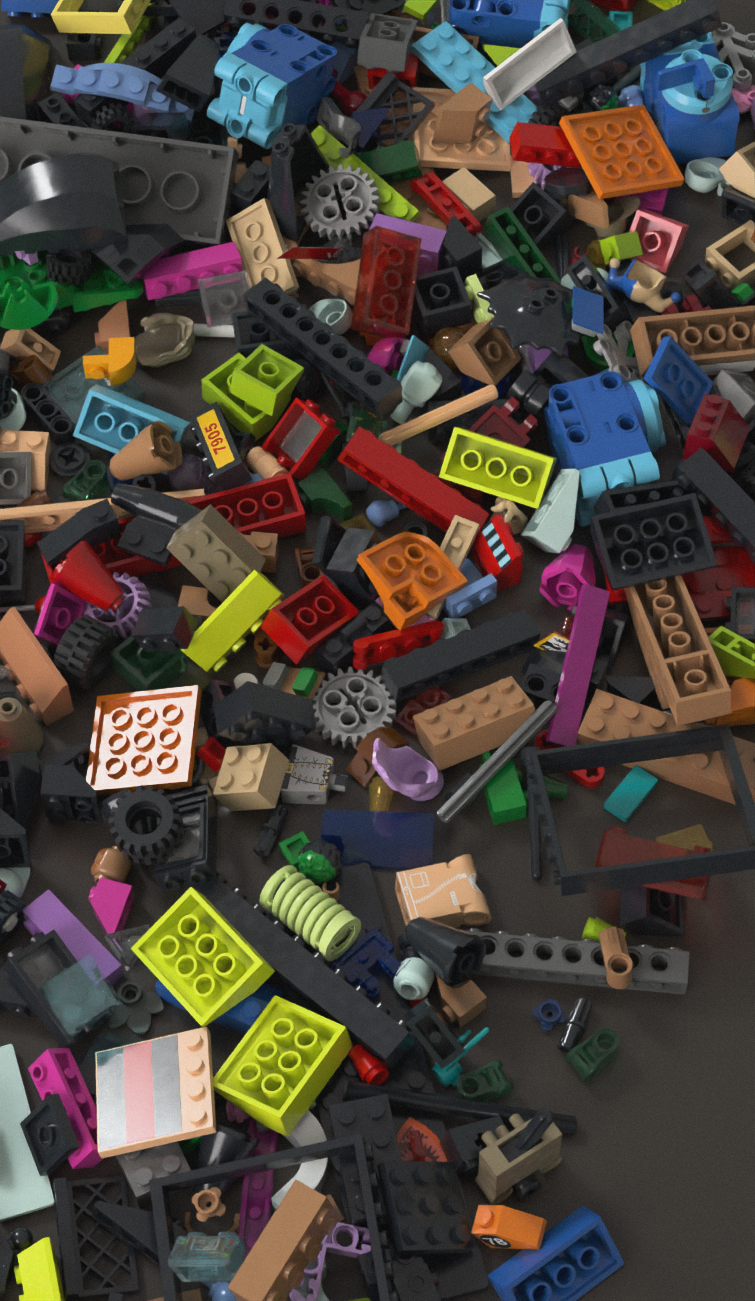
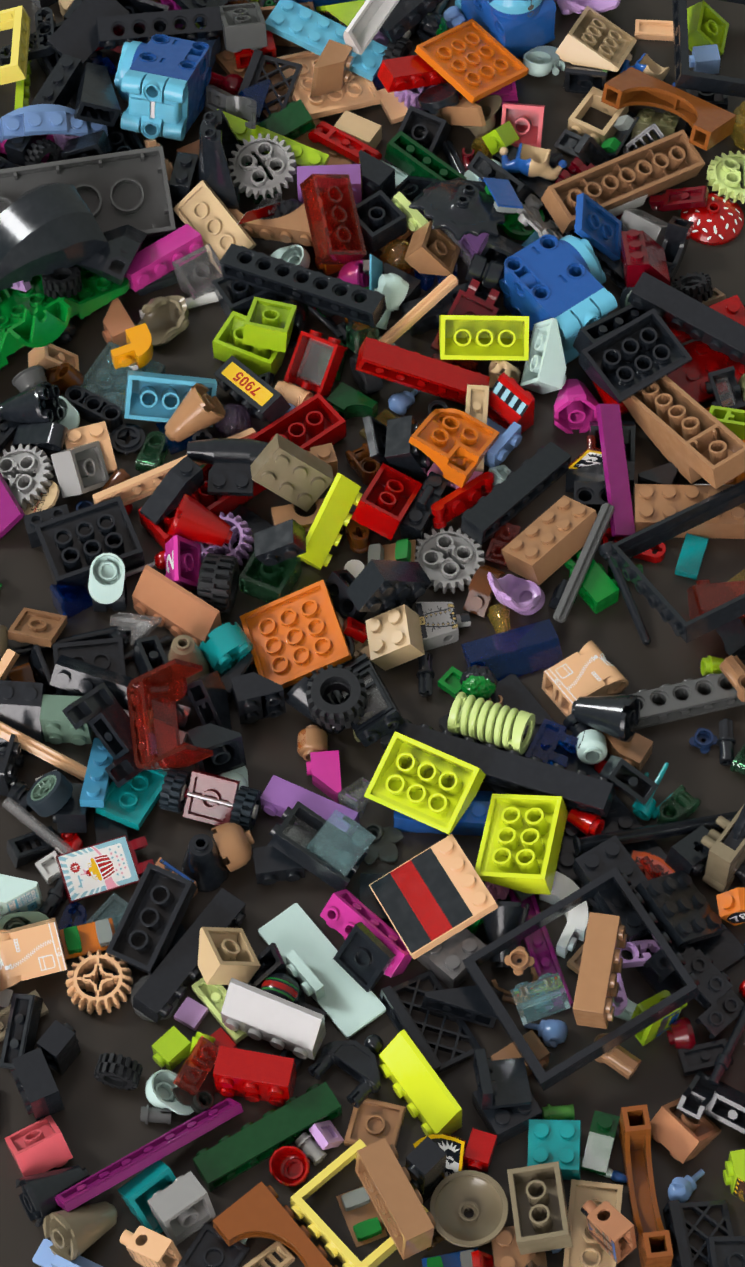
camera: 20 degrees left, 0 degrees up
(63, 726) = (226, 647): none -> teal brick

